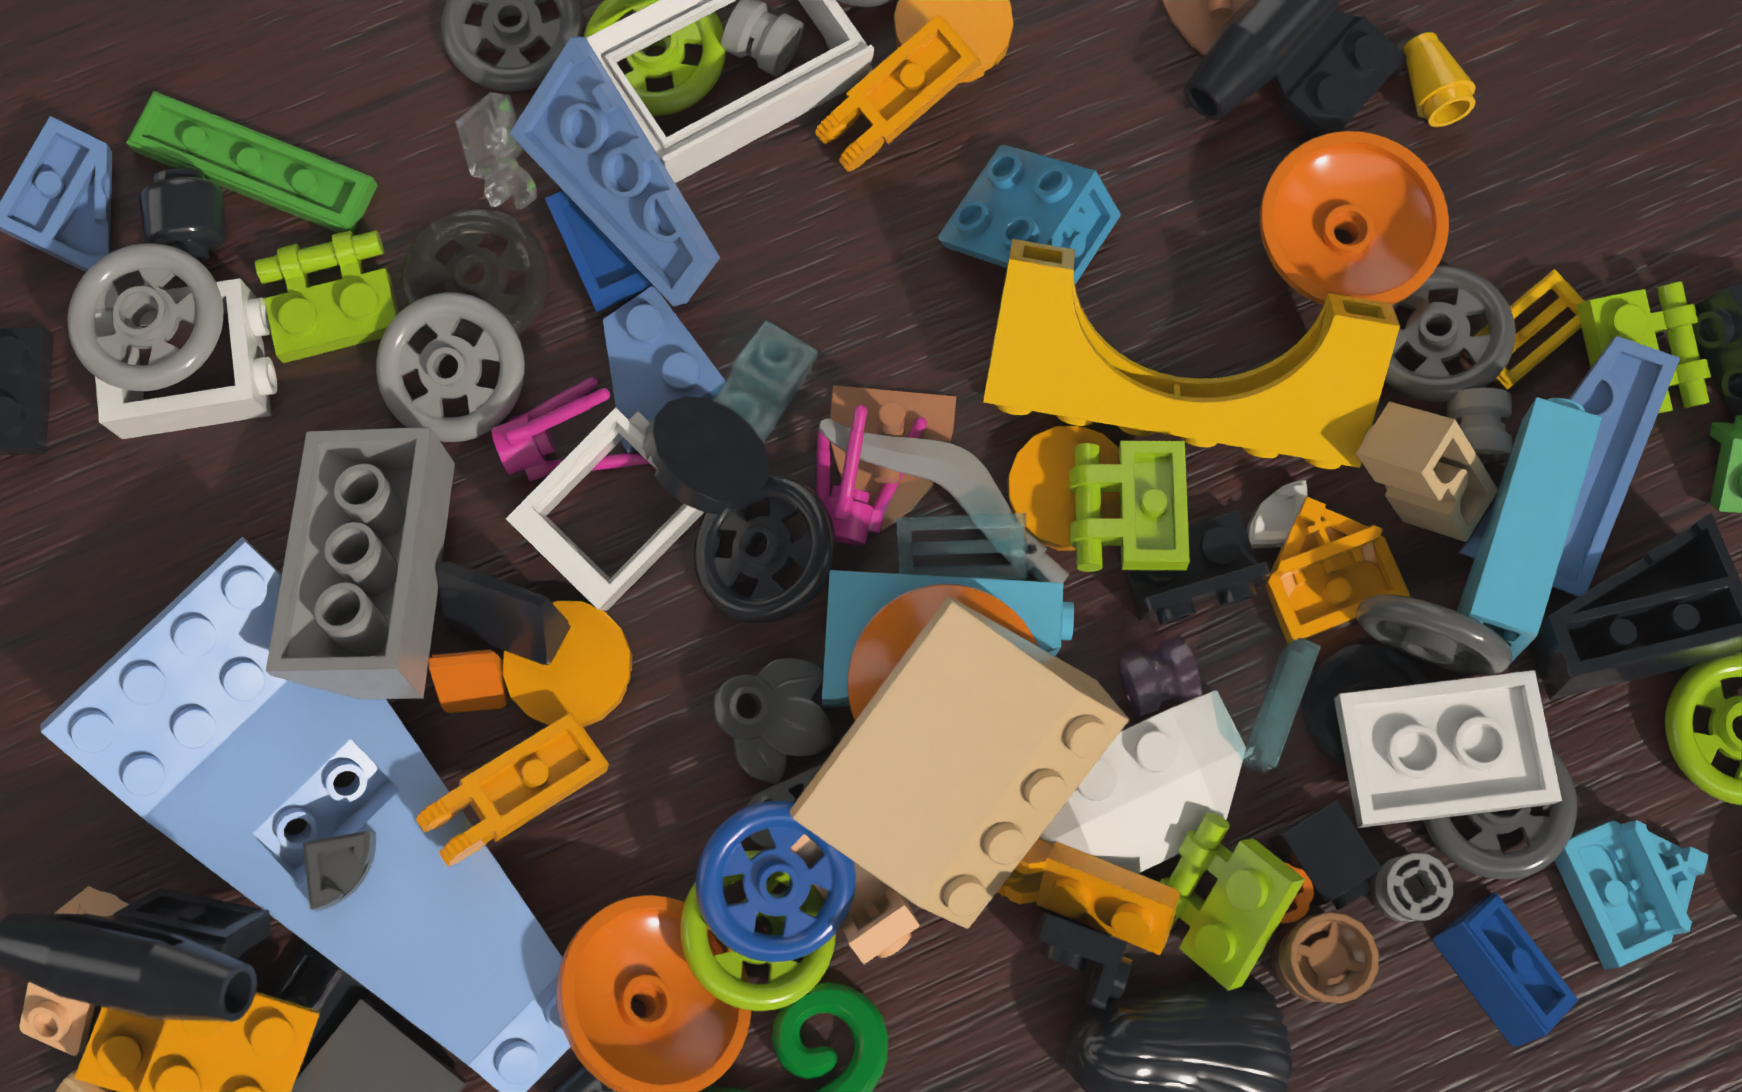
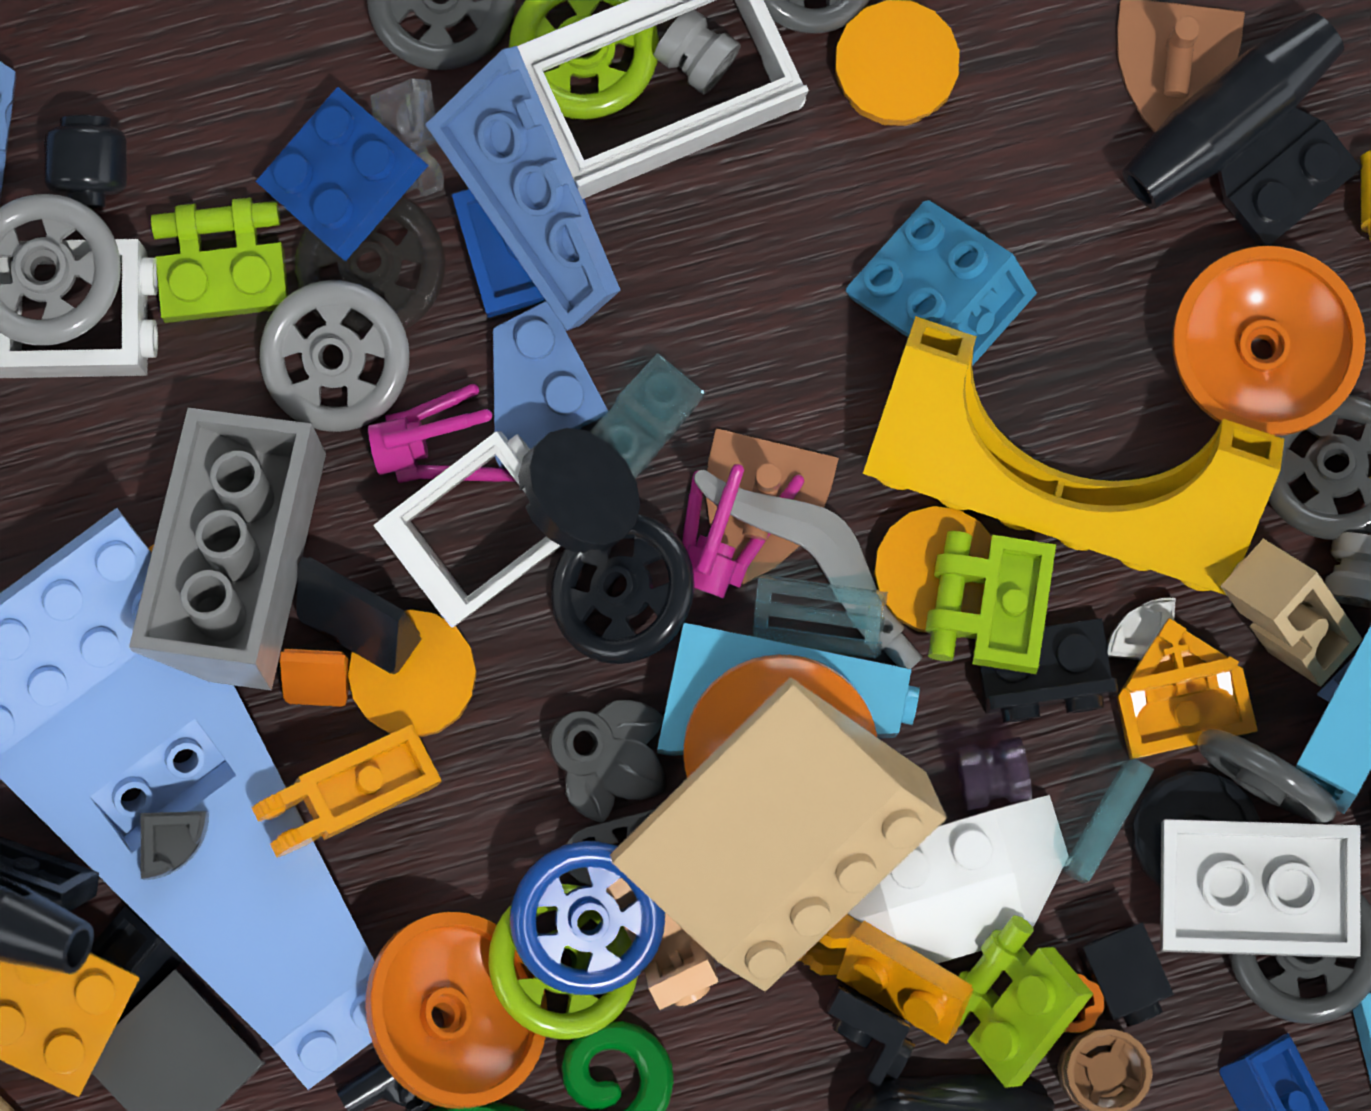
camera: 10 degrees right, 5 degrees up
(252, 164) = (157, 109): bright green tile -> none
(436, 193) = (342, 173): none -> blue plate
(900, 89) = (831, 131): light orange hinge -> none
(1397, 887) = (1192, 1014): light grey wheel -> none

